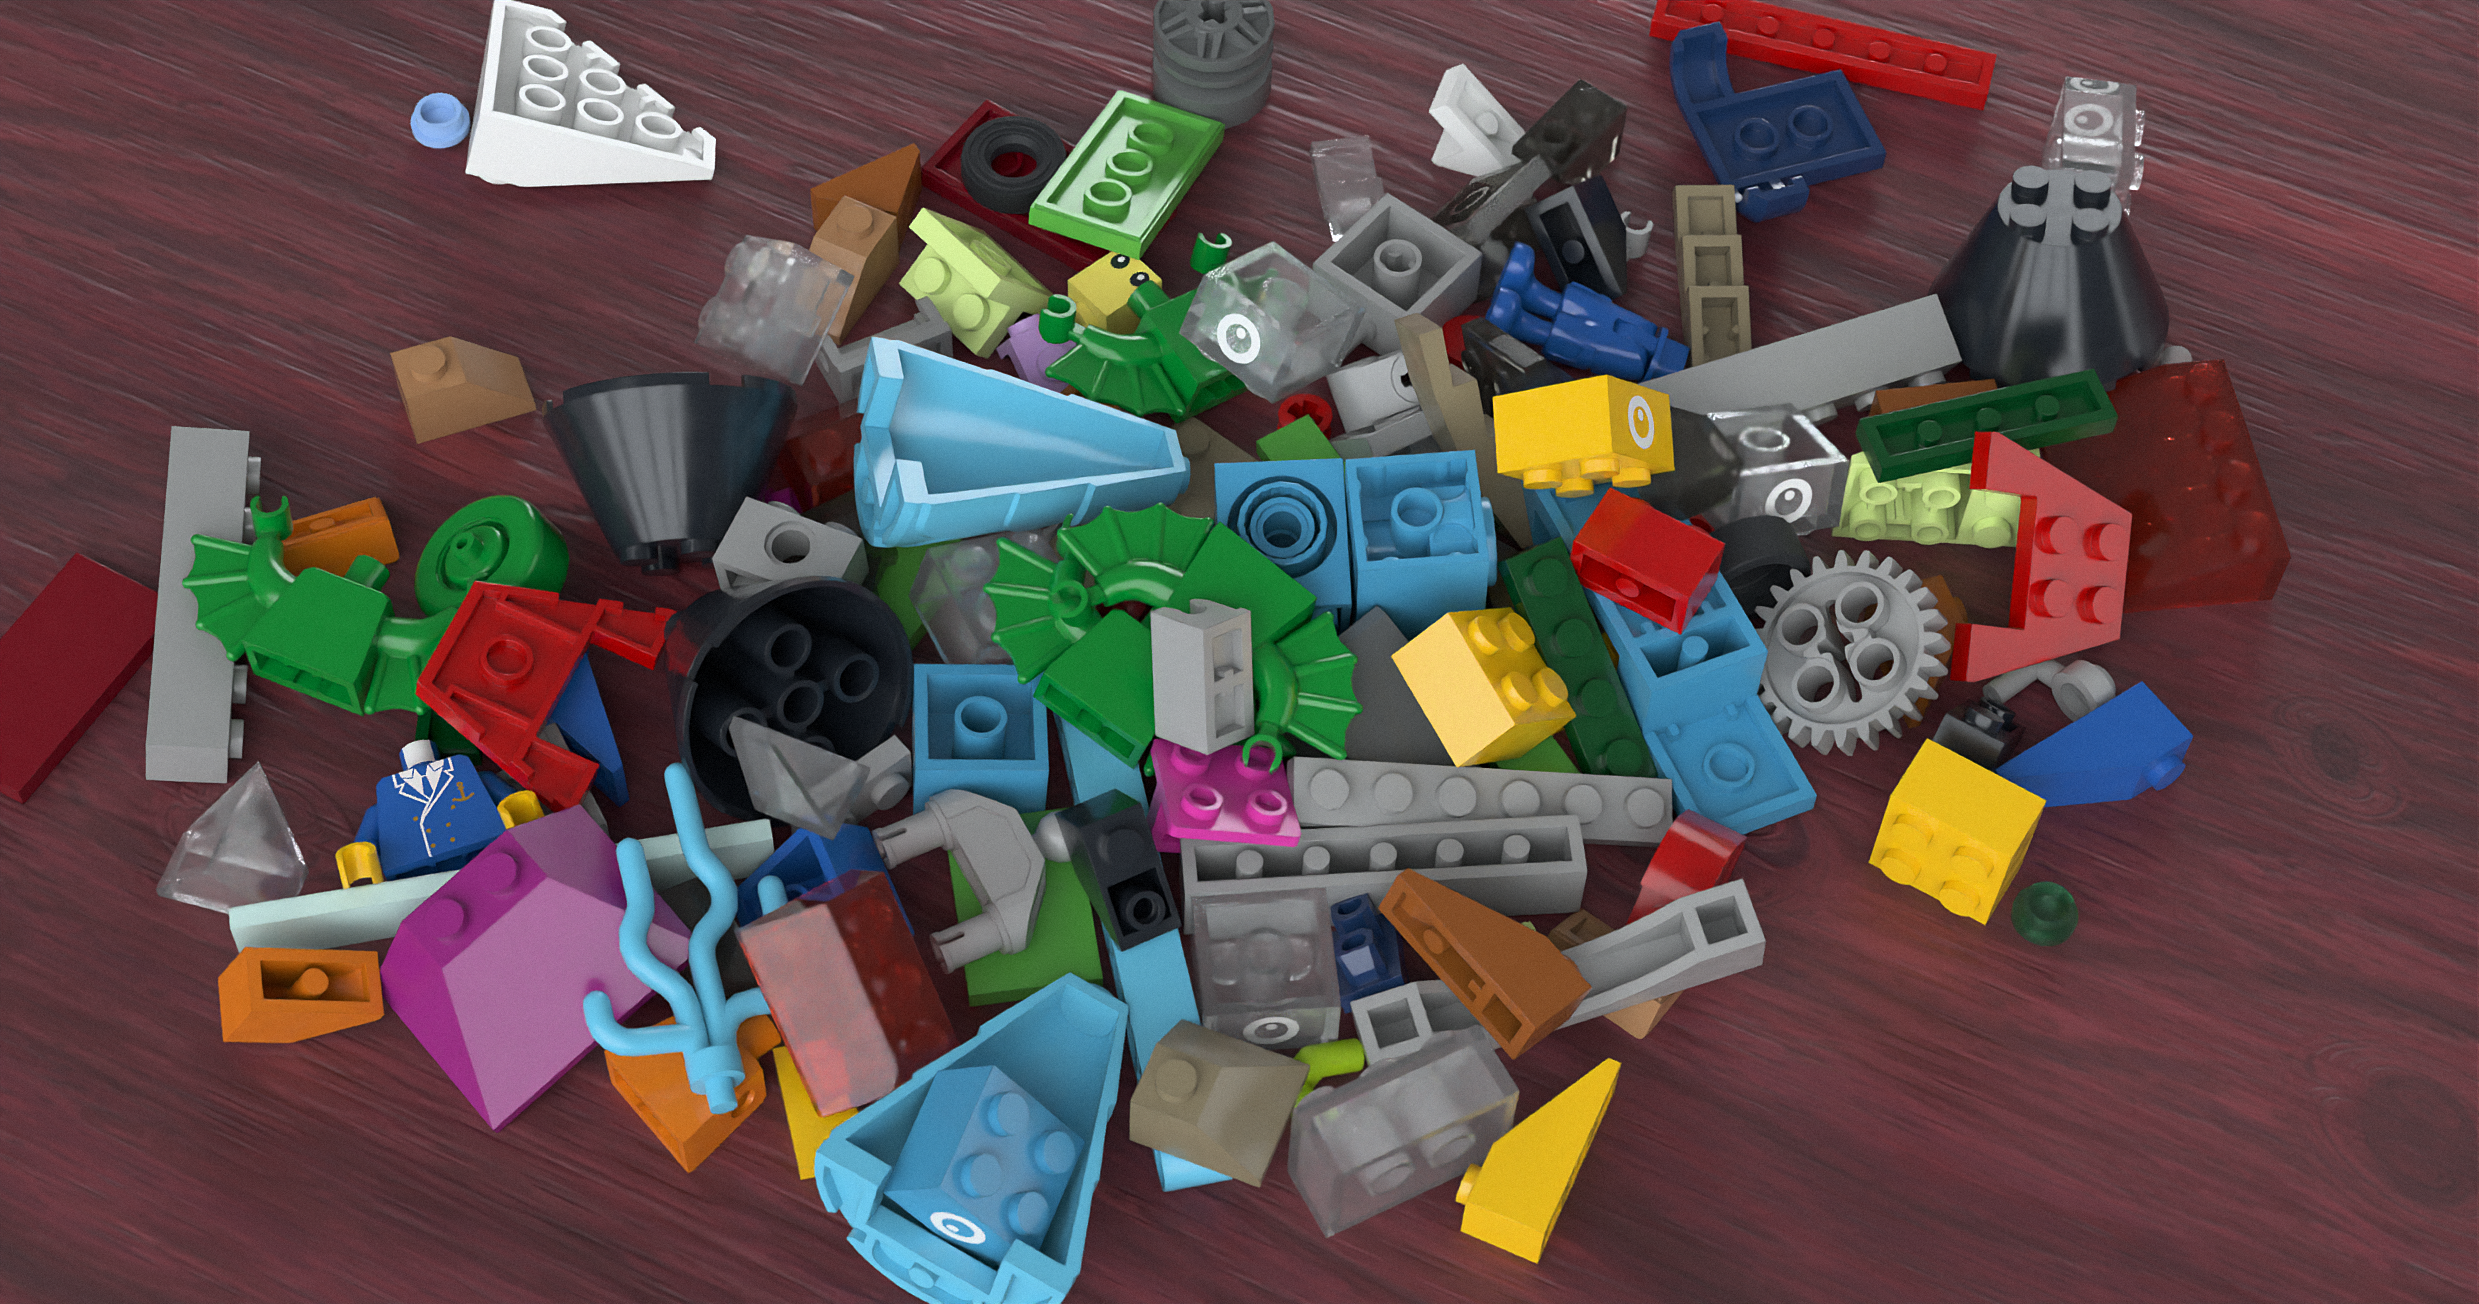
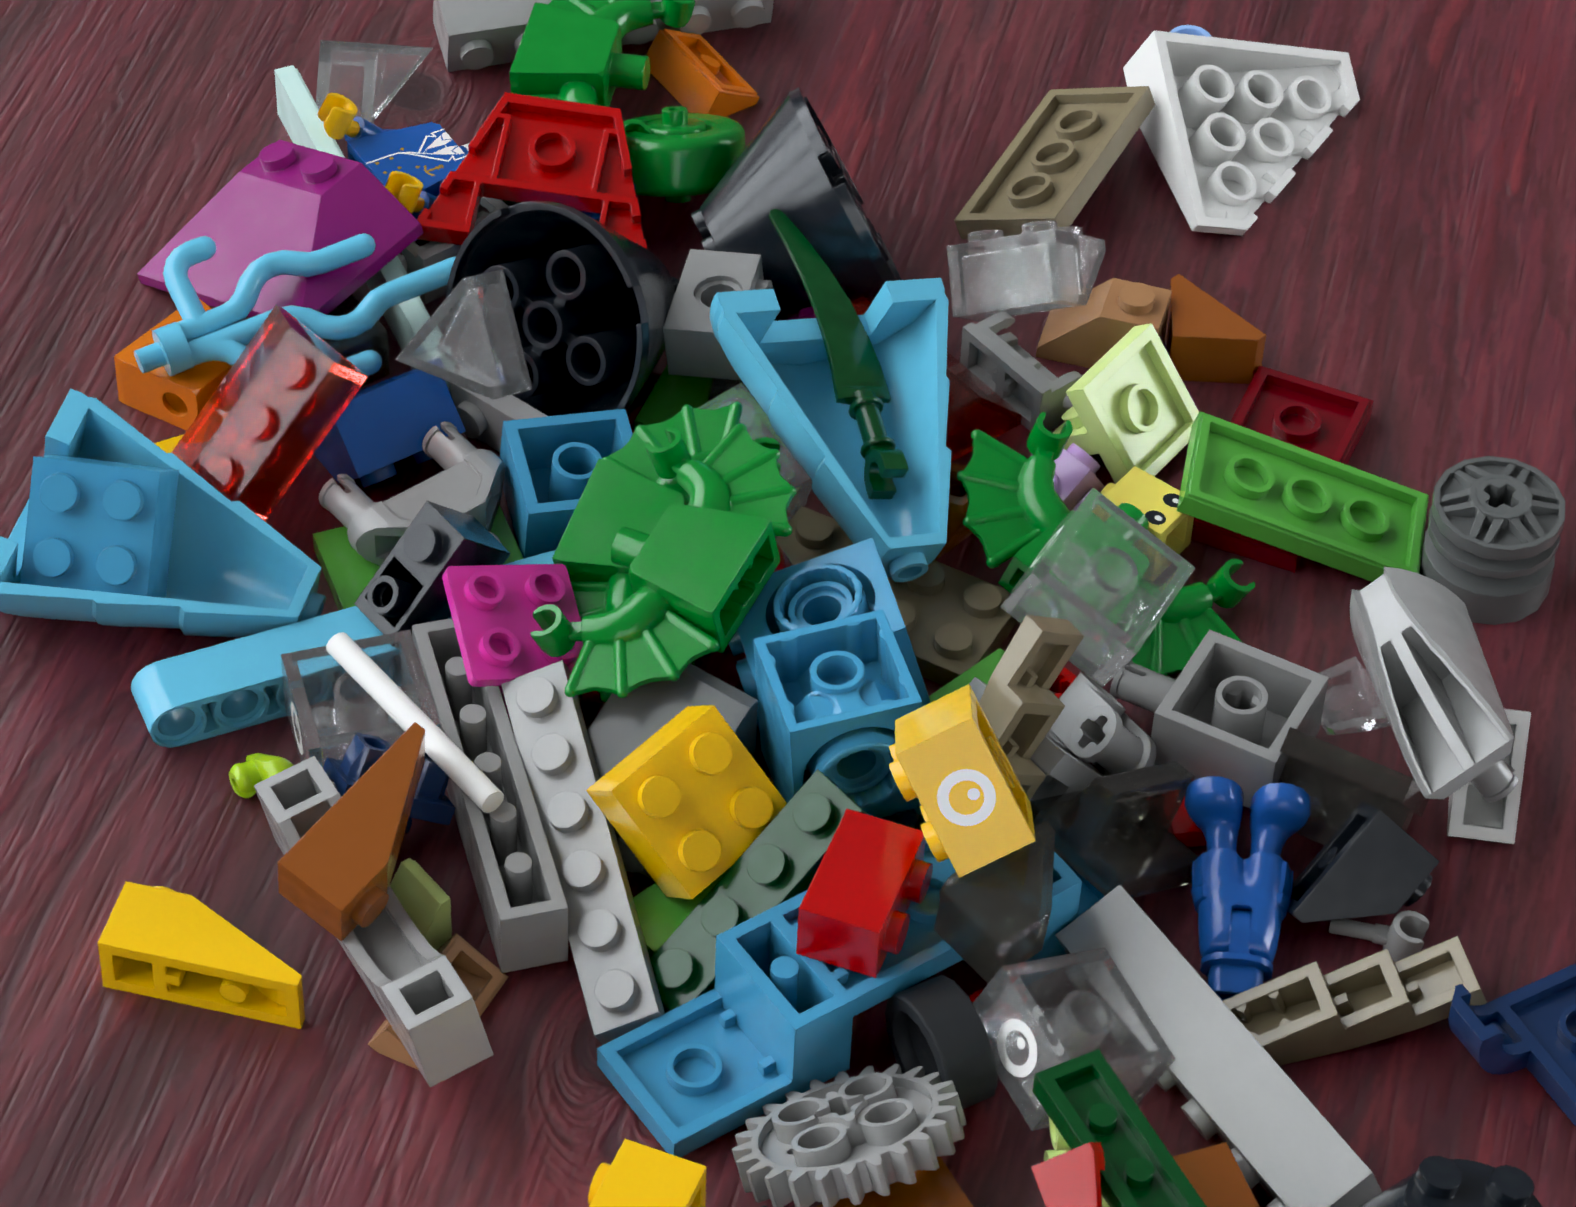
camera: 80 degrees right, 10 degrees down
(297, 993) = (225, 118): orange slope -> none
(458, 387) = (881, 109): medium nougat slope -> none
(599, 256) = (1057, 159): none -> dark tan plate
(929, 446) = (851, 358): none -> dark green sword
(1006, 136) = (1287, 393): black tyre -> none
(1202, 675) = (603, 550): light grey hinge -> none
(1215, 1101) = (200, 674): dark tan slope -> none
(1326, 905) = (405, 713): none -> white bar
(1399, 1128) = (194, 818): clear brick -> none
(1428, 119) = (1433, 684): none -> light grey piece
(1576, 134) = (1498, 853): clear smoke slope -> none
(1689, 860) = (545, 1027): red brick -> none

